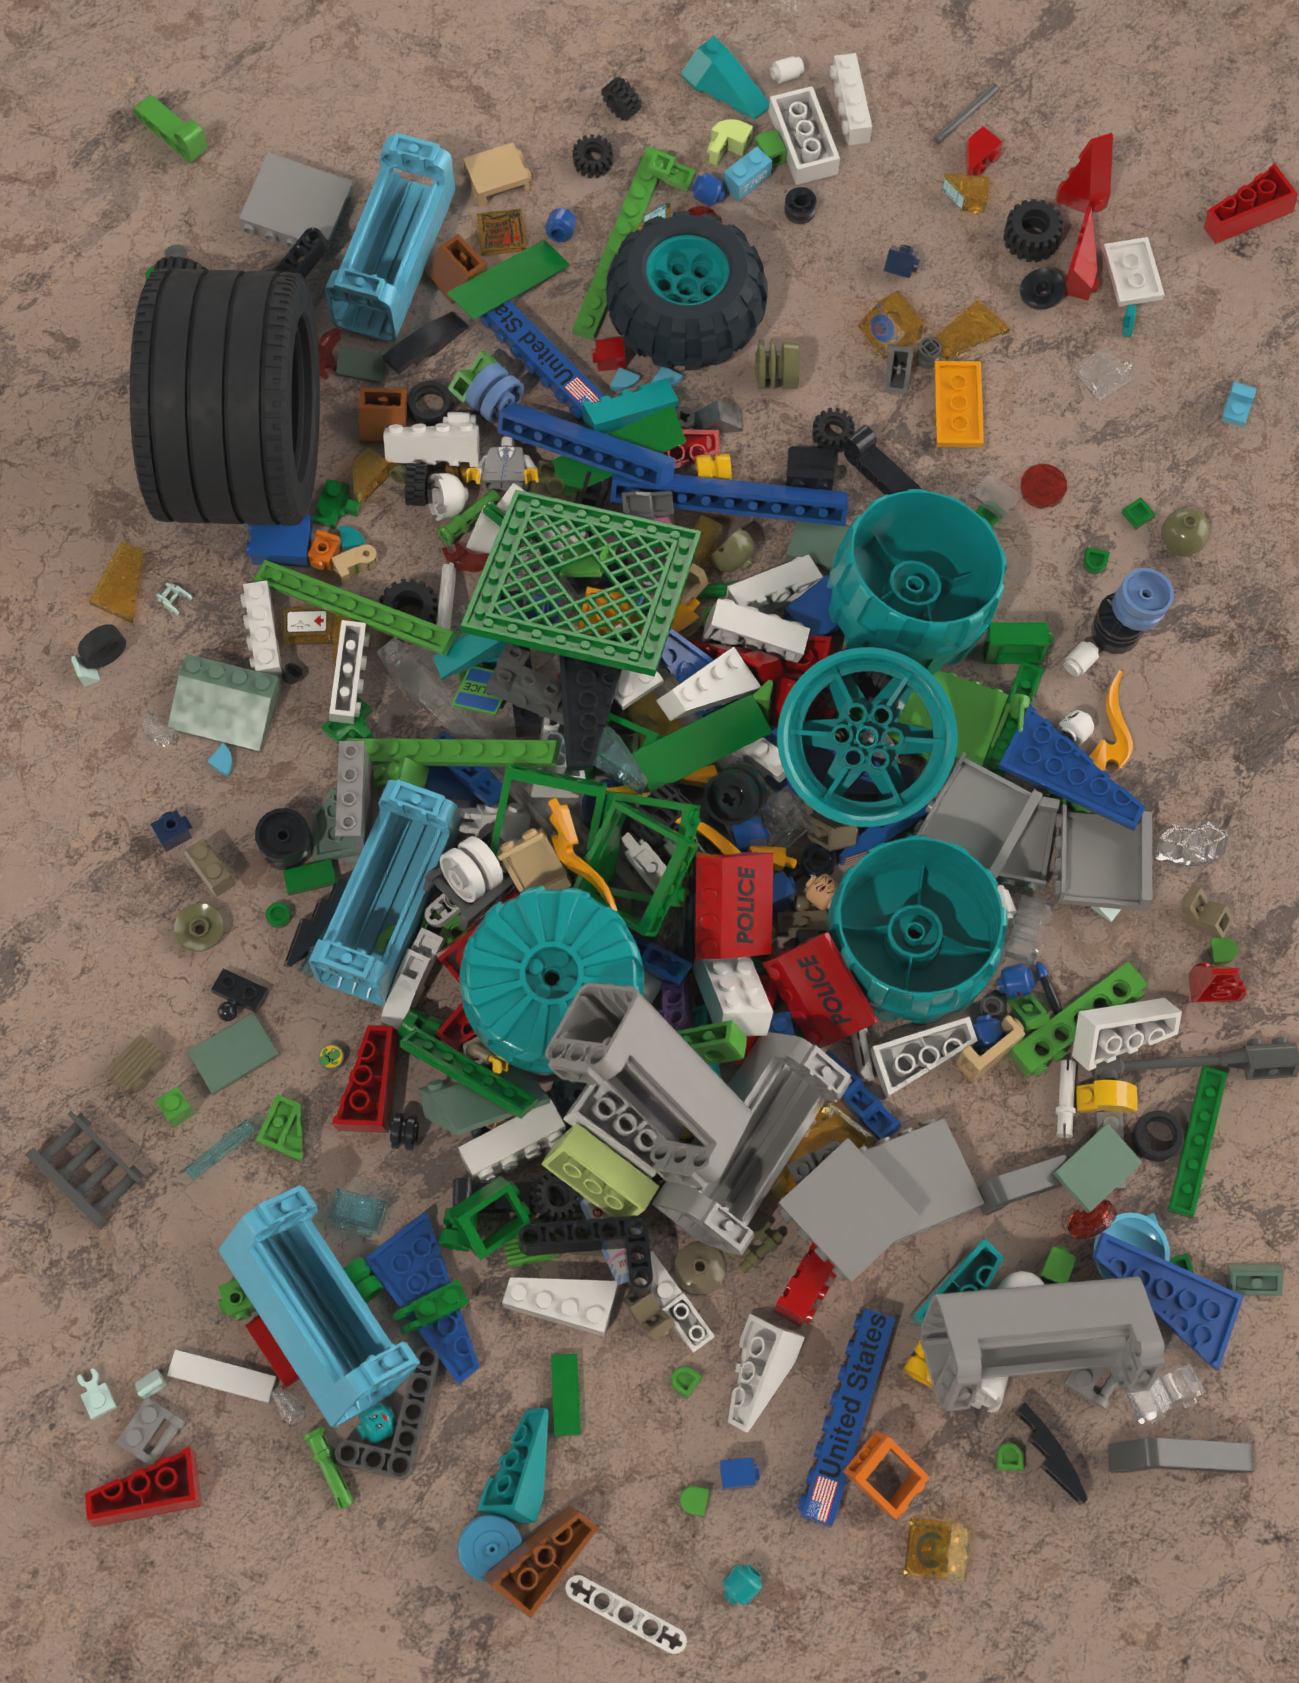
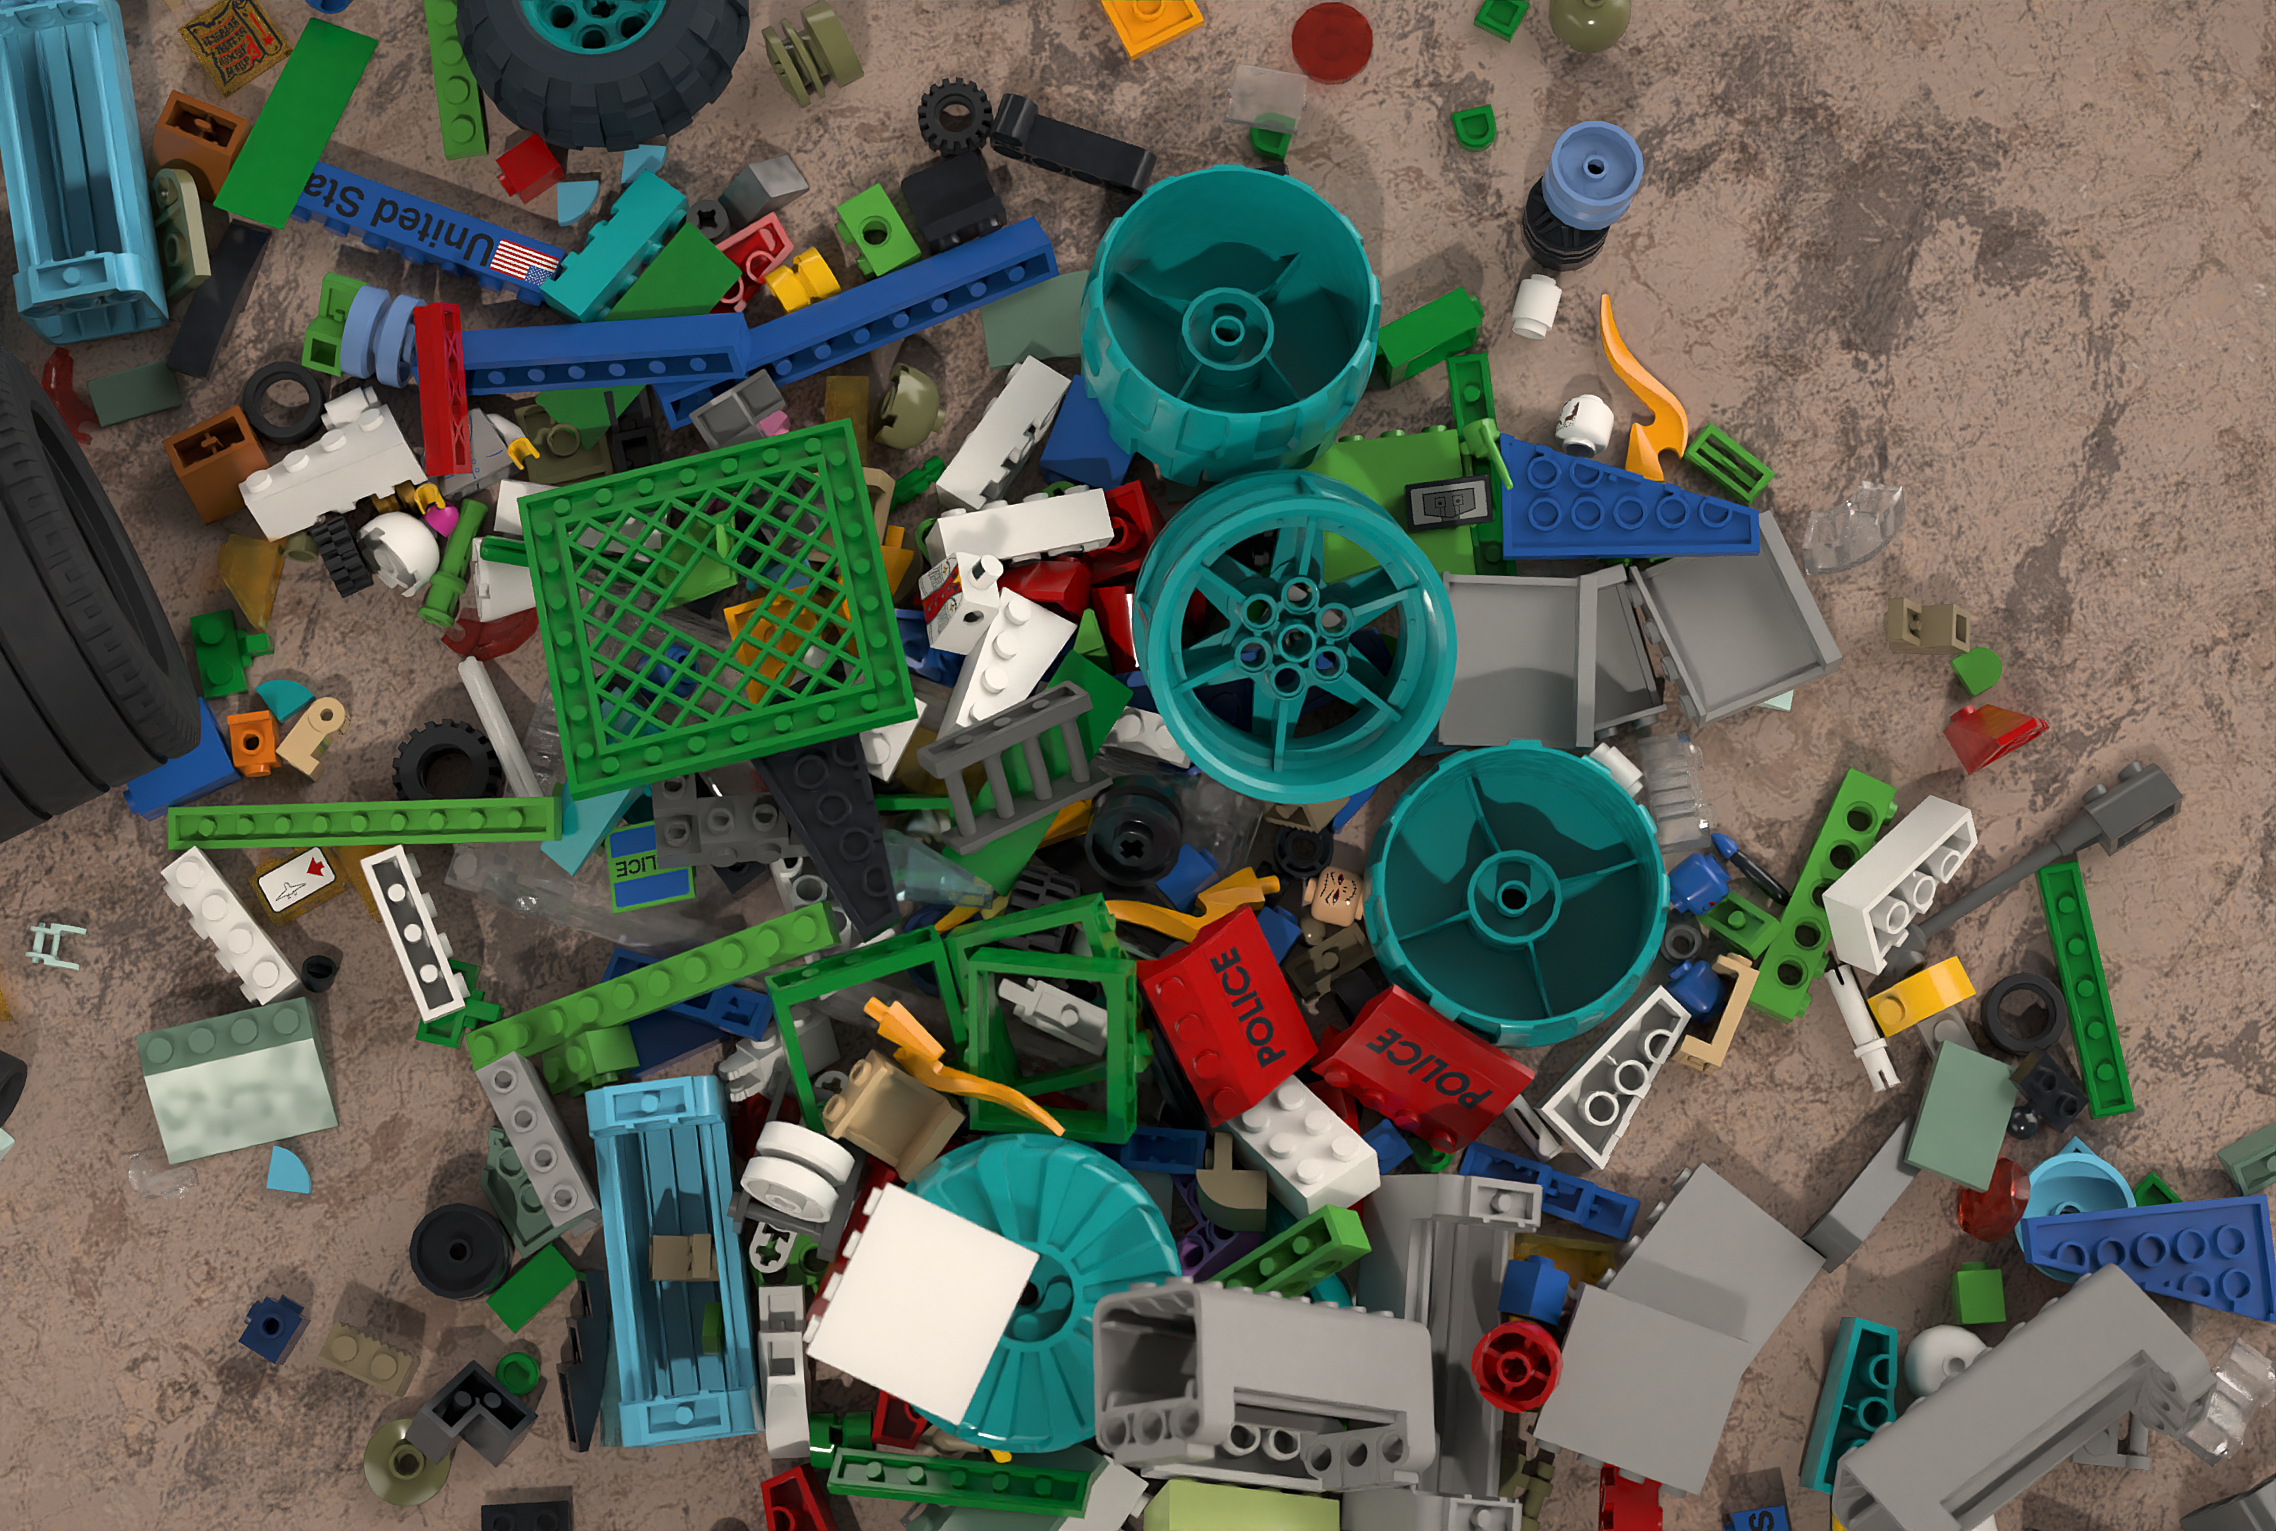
camera: 25 degrees left, 10 degrees up
(245, 916) = (472, 1410): none -> black brick
(390, 895) = (682, 1258): none -> dark tan brick
(423, 301) = (179, 233): none -> olive tile
(475, 491) = (443, 519): none -> dark pink hinge
(494, 942) = (920, 1302): none -> white brick
(509, 427) = (442, 389): none -> red fence
(682, 705) = (988, 739): none -> dark grey fence
(686, 999) = (1230, 1196): none -> dark tan brick
(708, 640) = (960, 600): none -> white torso
(765, 453) = (874, 212): none -> bright green brick
(789, 1160) = (1517, 1366): none -> red cylinder
(819, 1132) = (1534, 1291): none -> blue brick
(984, 726) = (1448, 503): none -> slope
(1149, 1181) = (2048, 1095): none -> black plate
(1150, 780) = (1717, 476): none -> bright green tile

